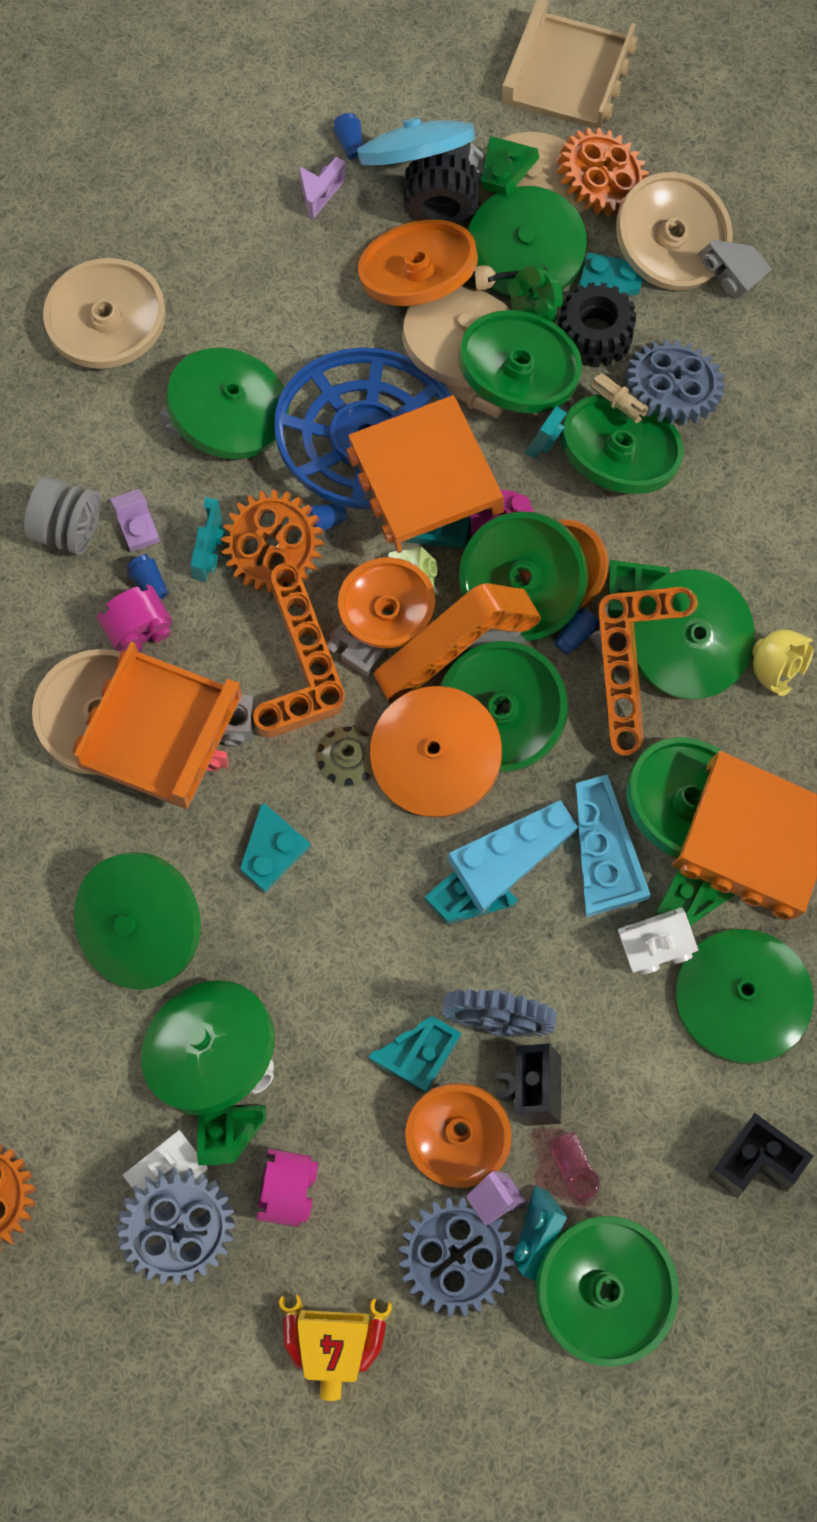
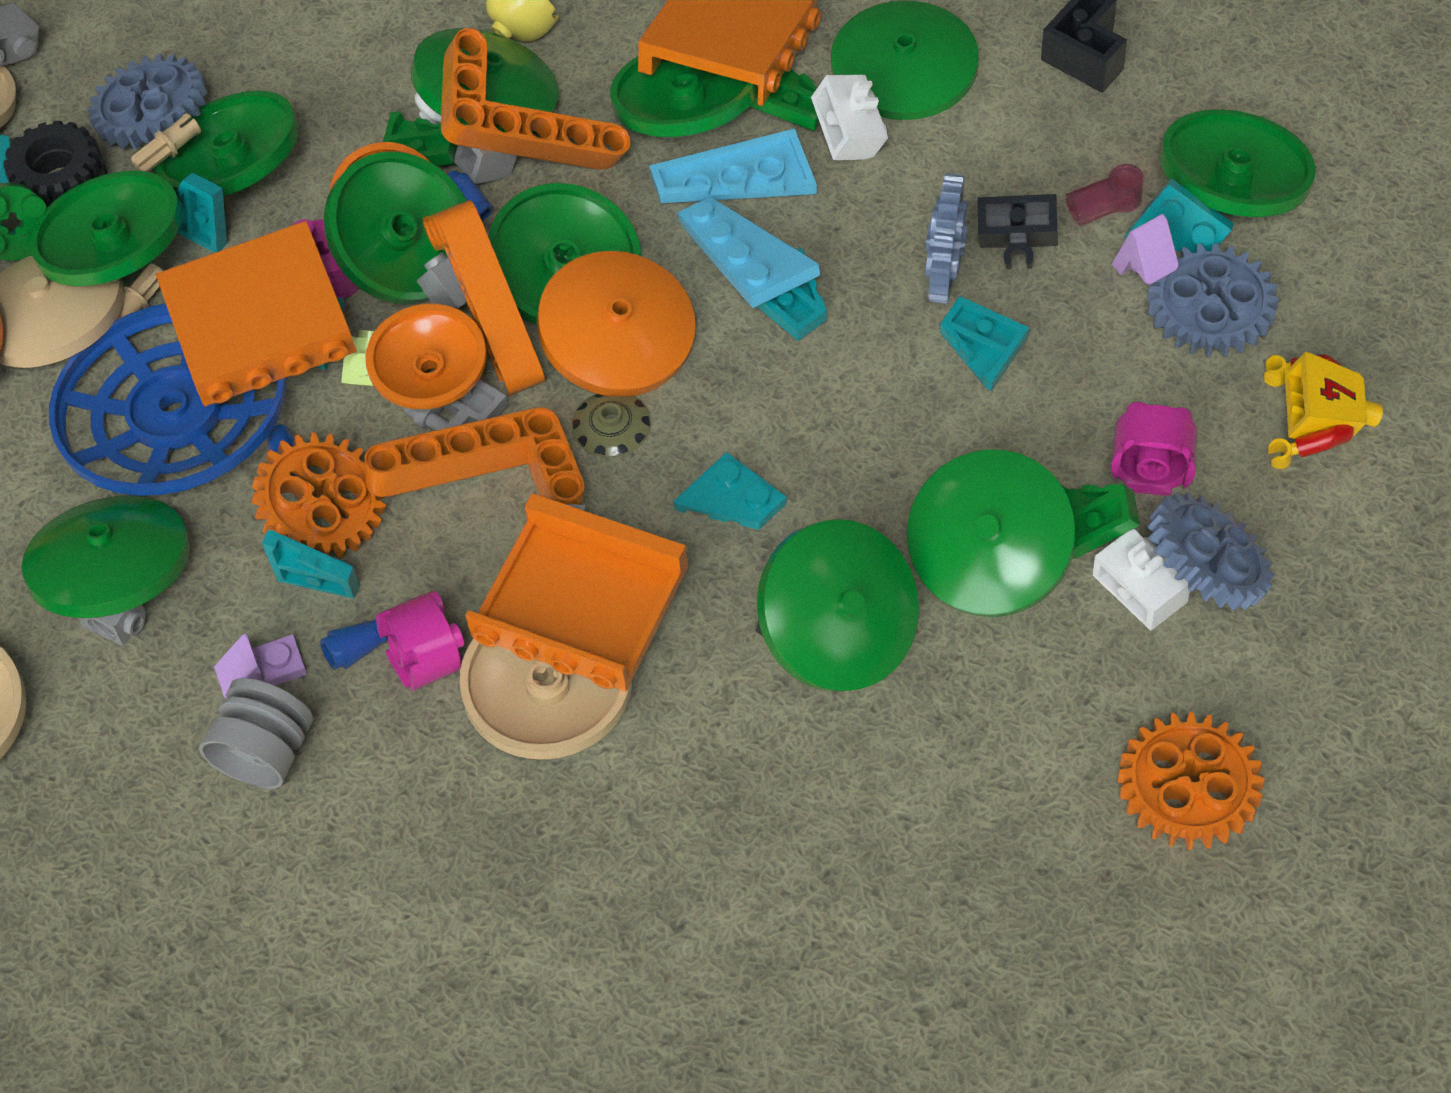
camera: 85 degrees left, 10 degrees down
(452, 1156) = (1080, 289): orange dish -> none

